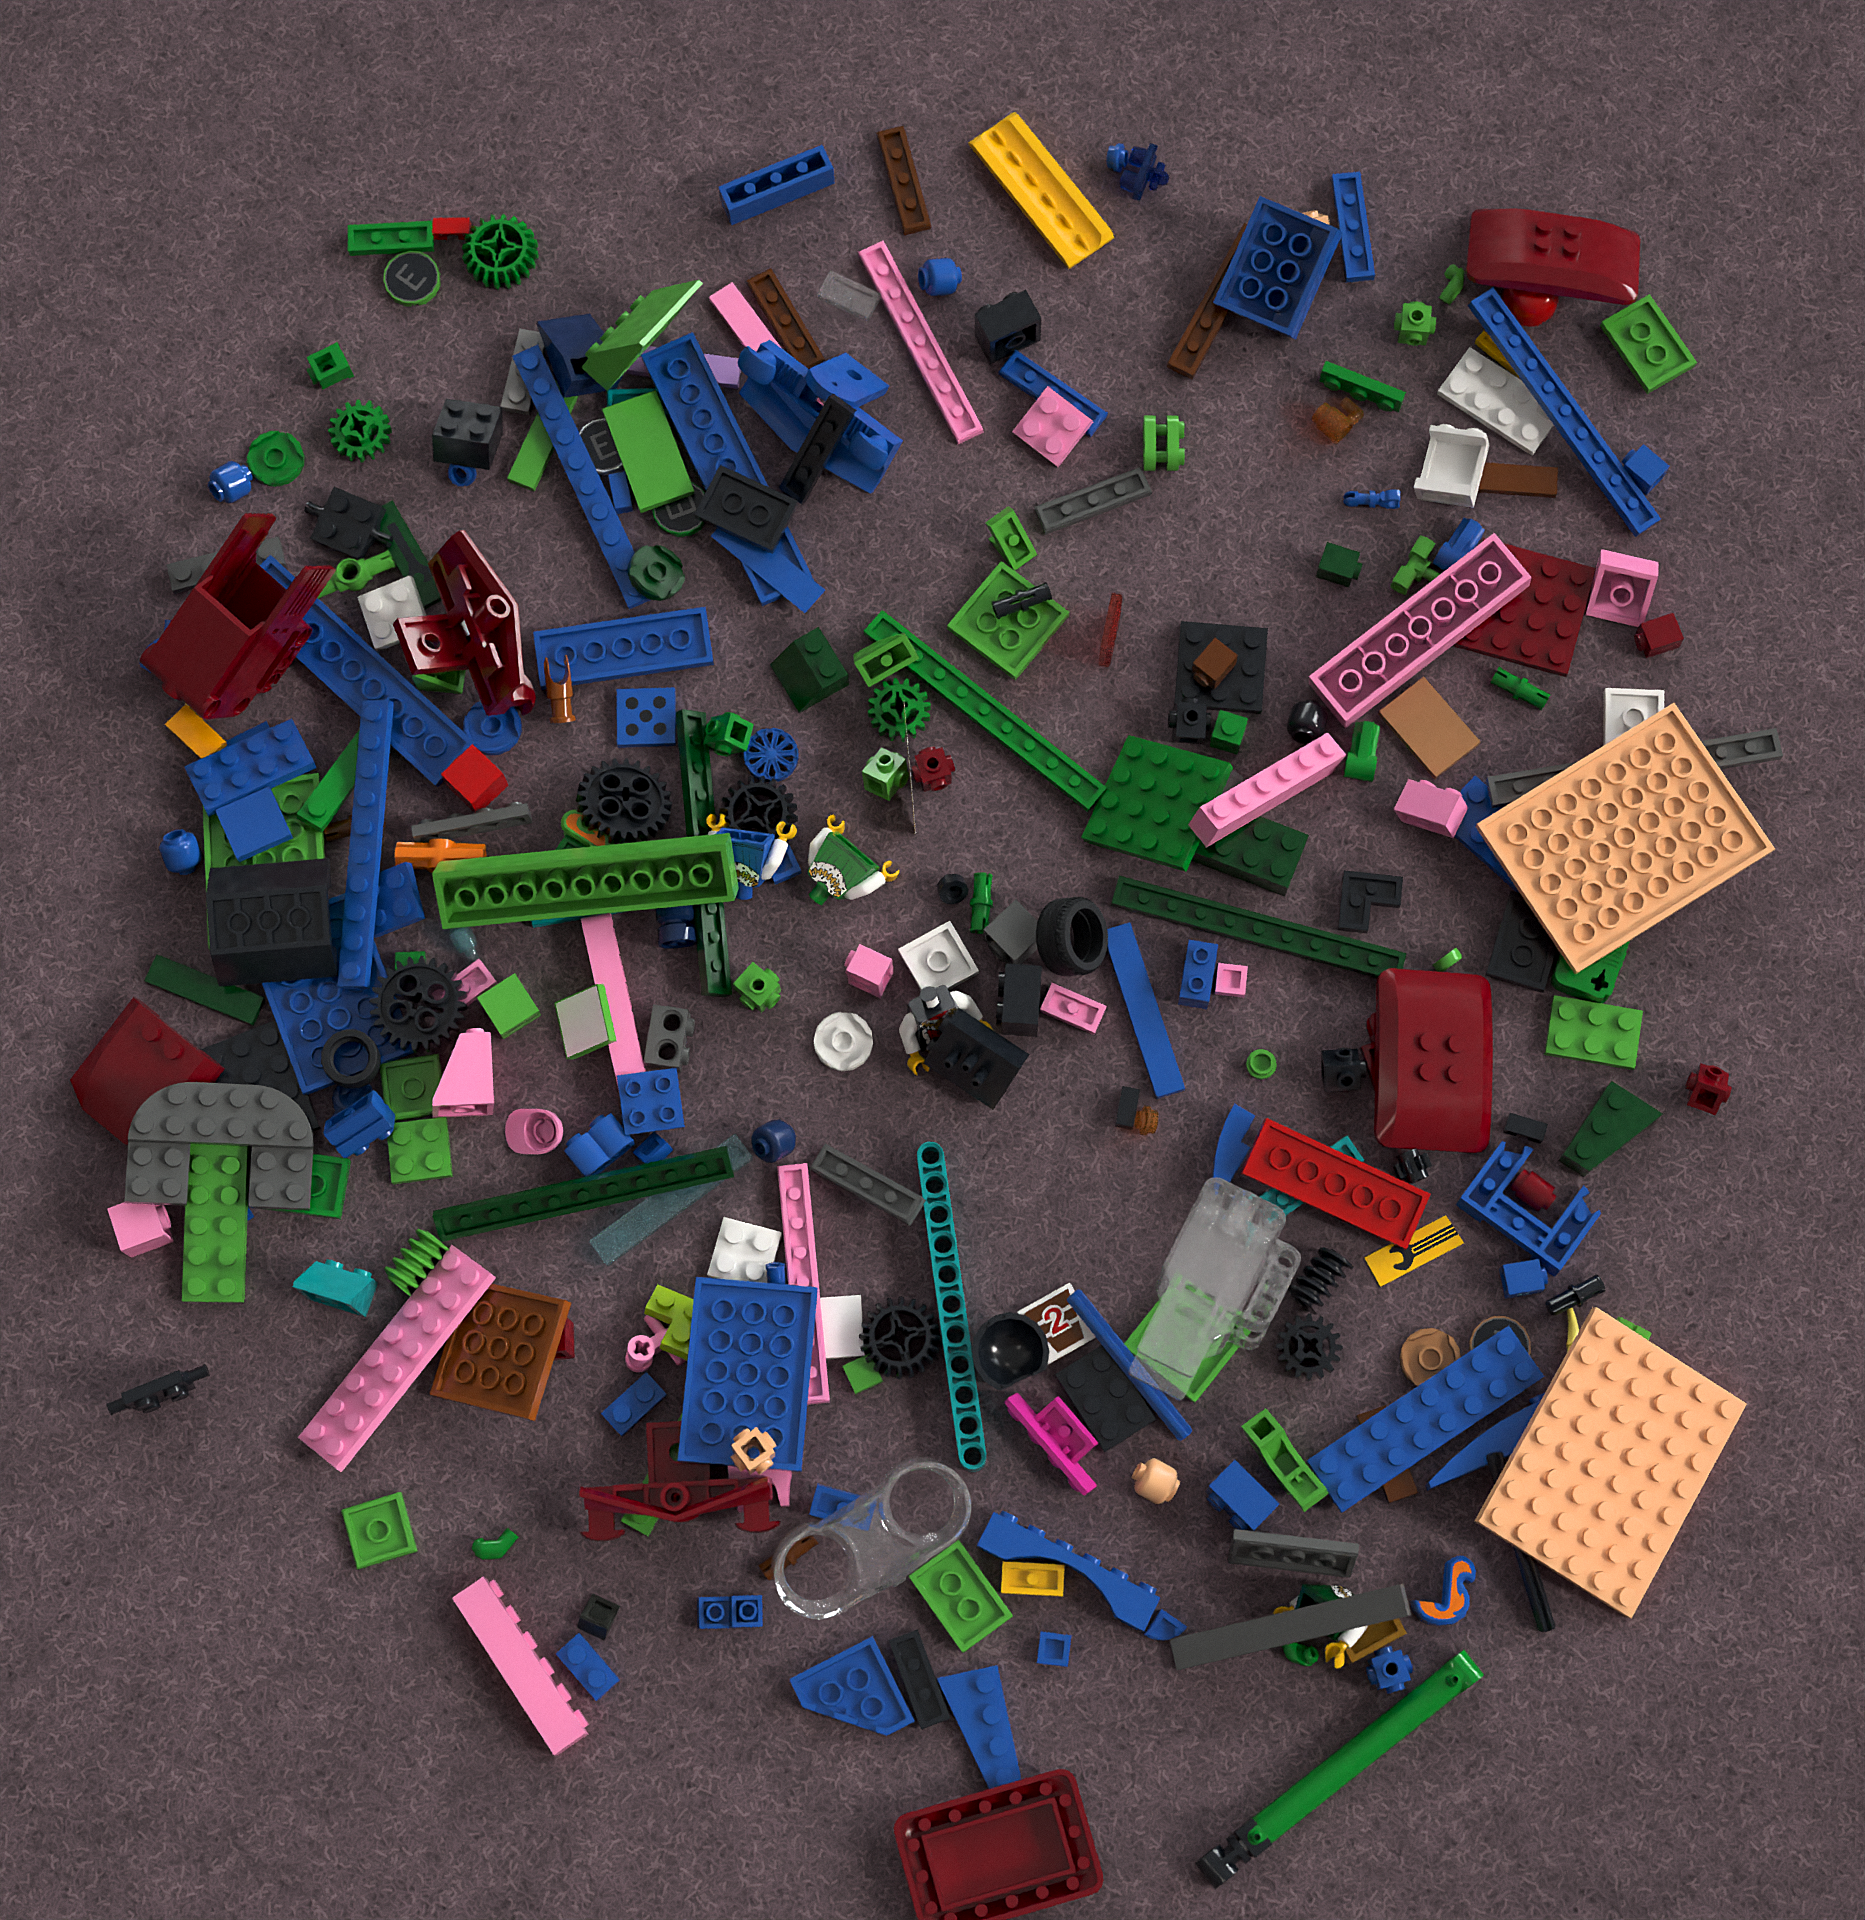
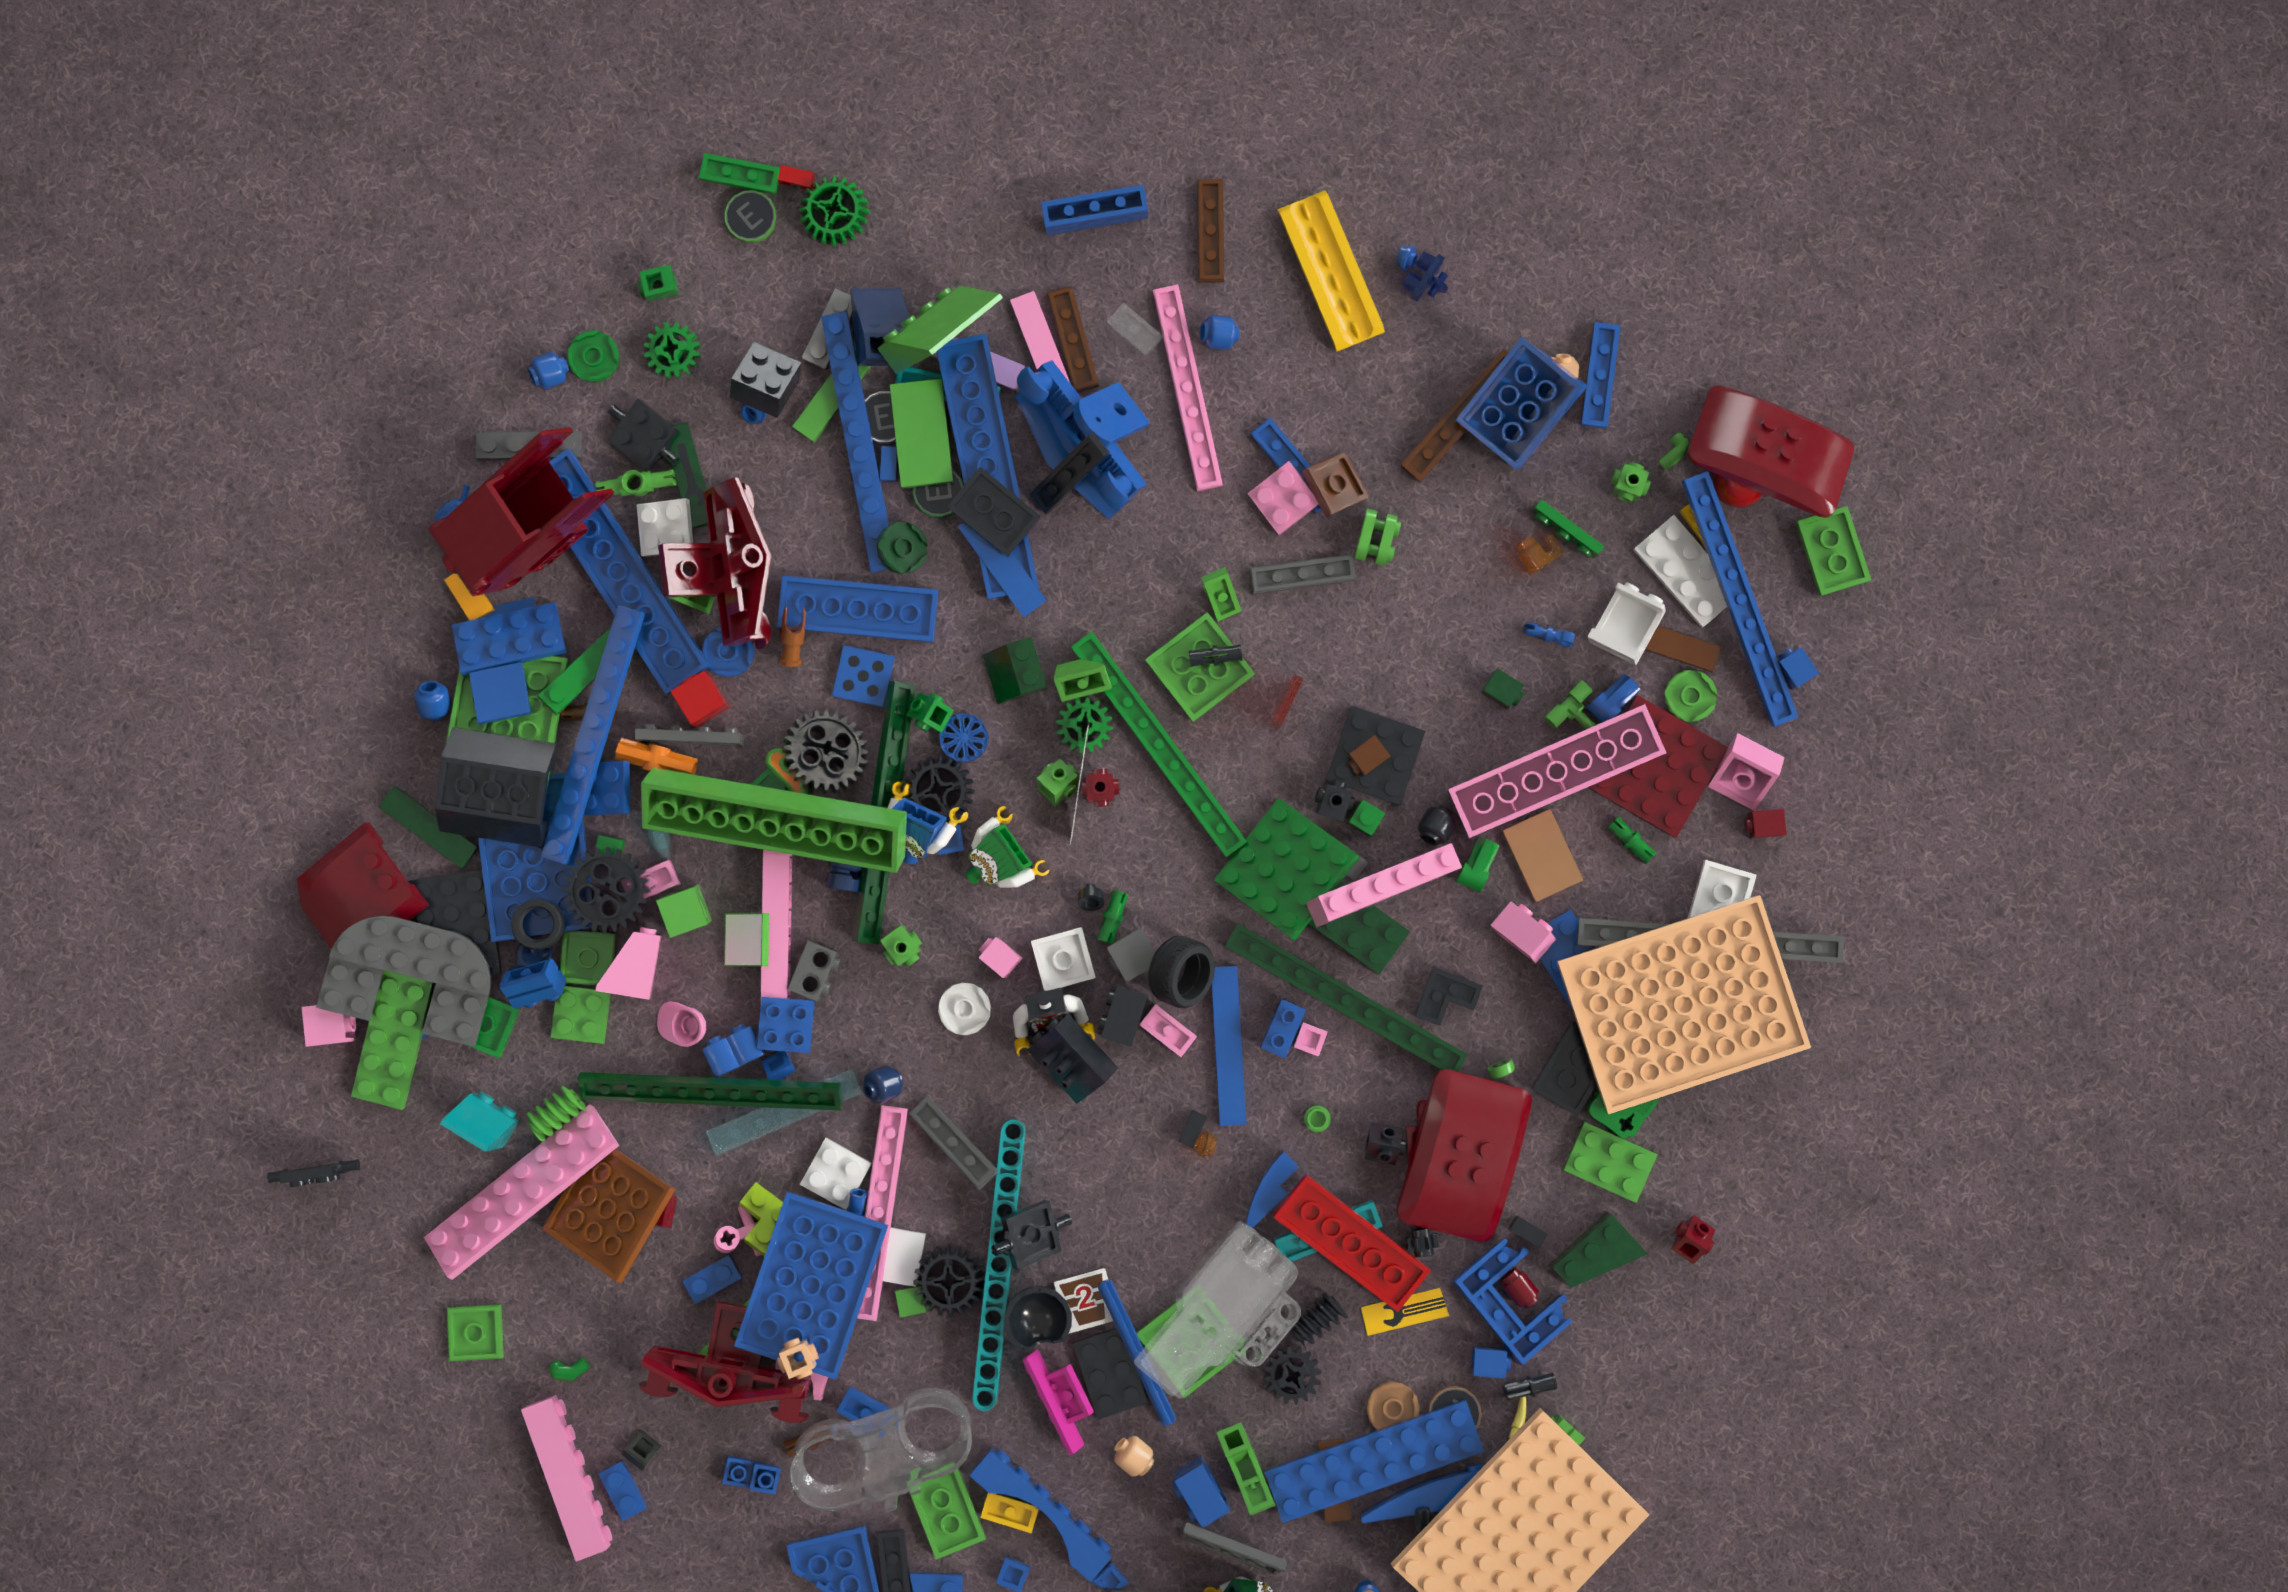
camera: 15 degrees right, 10 degrees up
(979, 1261) = (1031, 1234): none -> black plate
(1007, 326) = (1267, 396): black brick -> none
(1103, 399) = (1335, 484): none -> reddish brown tile
(1540, 526) = (1683, 699): none -> bright green tile

